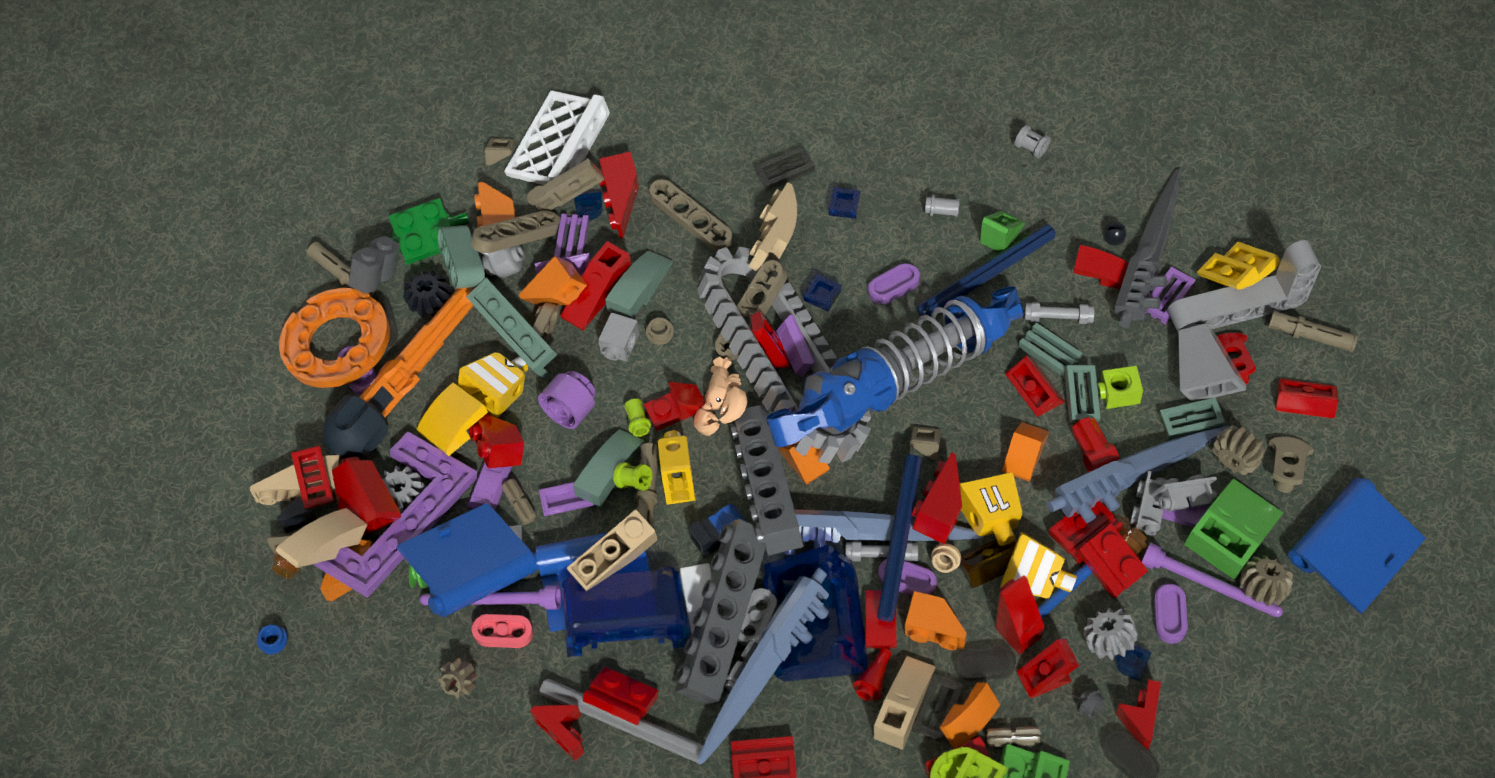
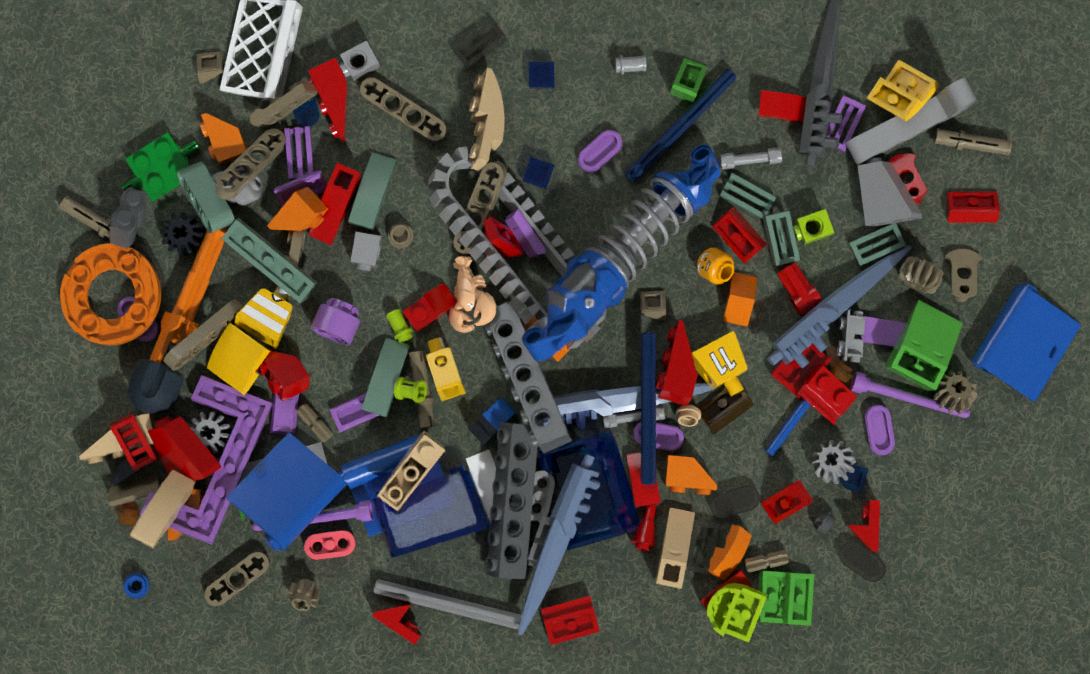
camera: 20 degrees left, 25 degrees up
(391, 395) = (202, 336): none -> dark tan beam
(391, 639) = (236, 589): none -> dark tan beam
(620, 695) = (442, 585): red plate -> none
(662, 161) = (362, 50): none -> light grey brick
(1002, 407) = (715, 266): none -> light orange head
(1018, 615) = (758, 465): red slope -> none
(1040, 566) = (765, 416): torso -> none
(1115, 233) = (790, 71): black hinge -> none
(1196, 488) = (872, 327): light grey hinge -> none

